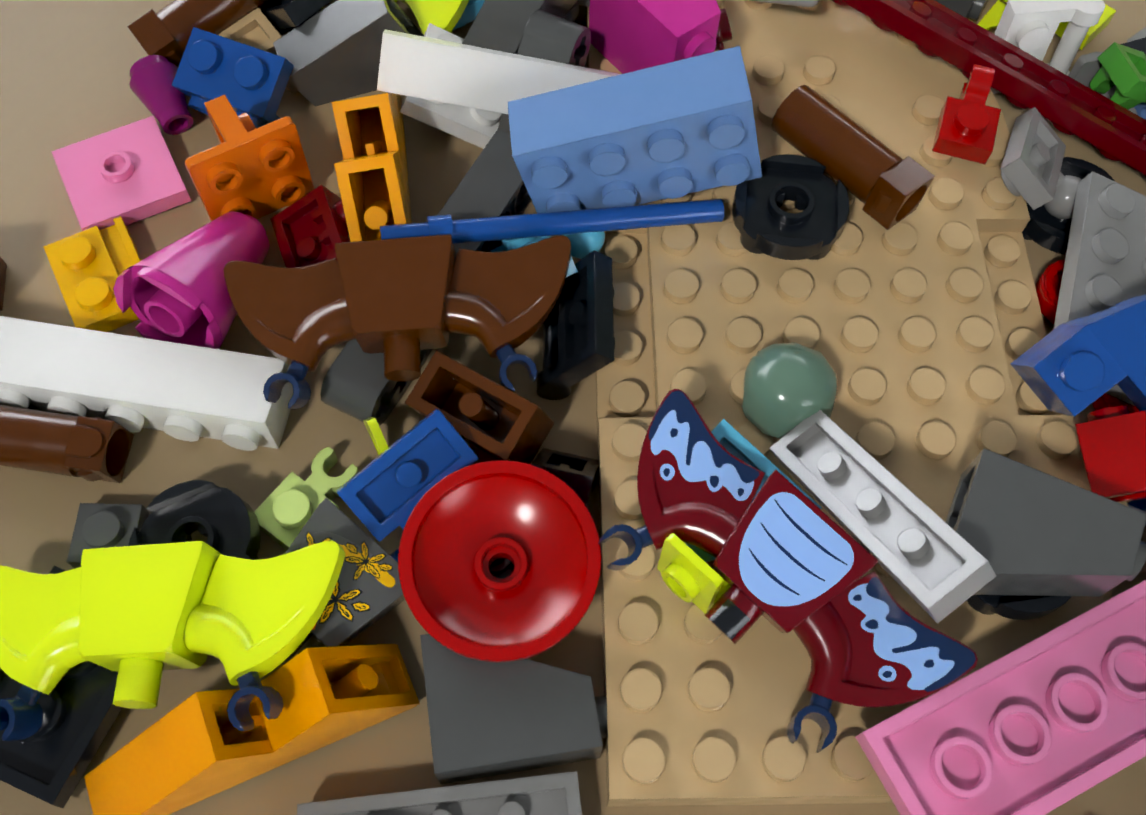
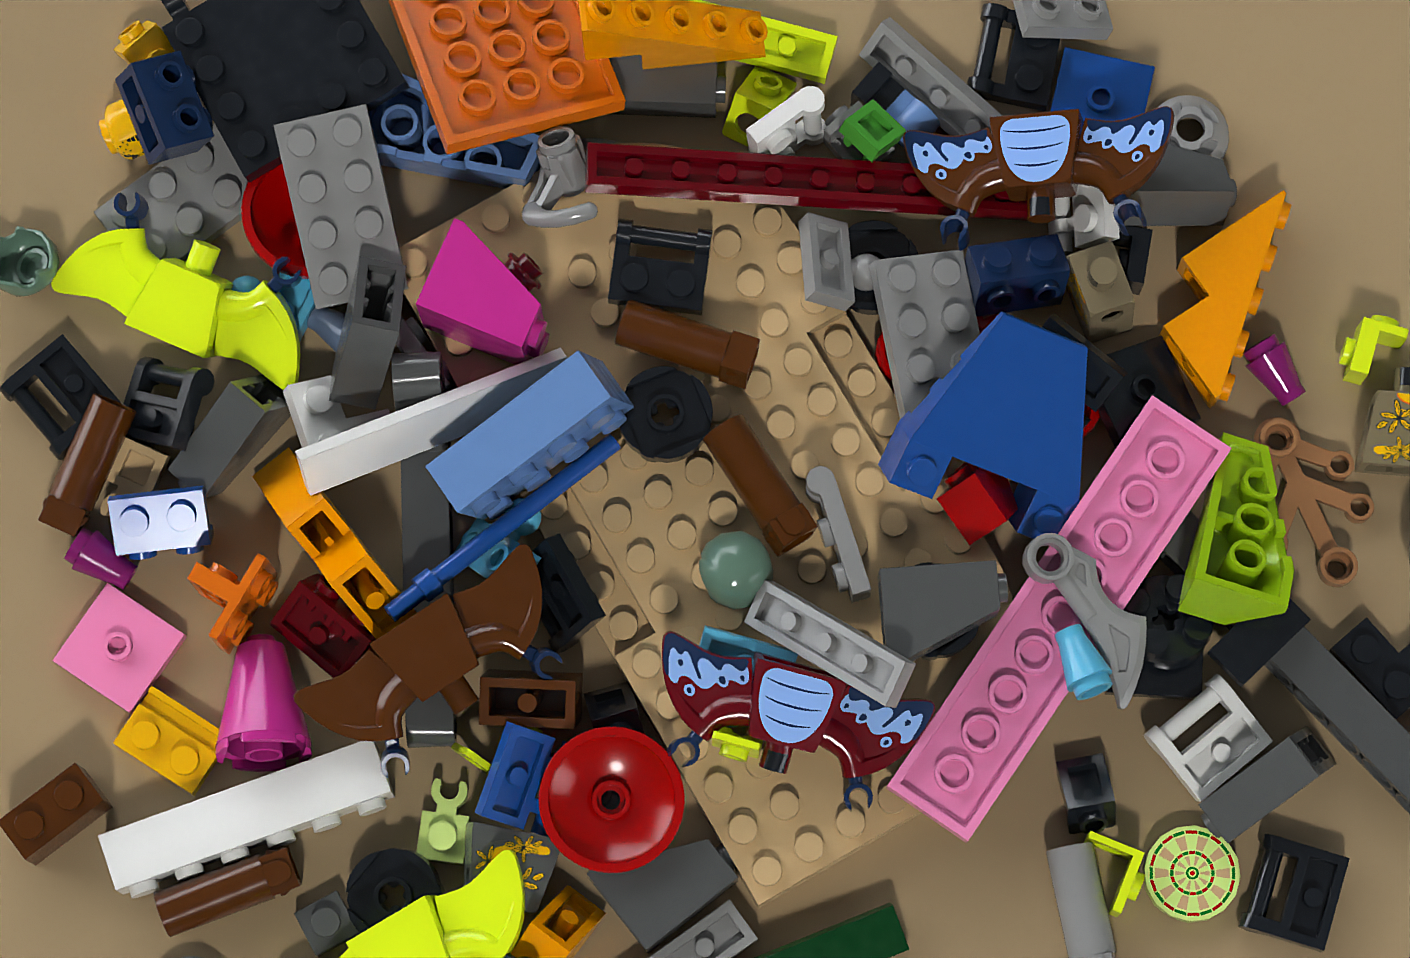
camera: 25 degrees left, 15 degrees up
(856, 99) = (660, 282): none -> black plate
(863, 320) = (760, 485): none -> reddish brown piece
(933, 405) = (837, 532): none -> light grey plate
(966, 124) = (764, 254): red plate -> none

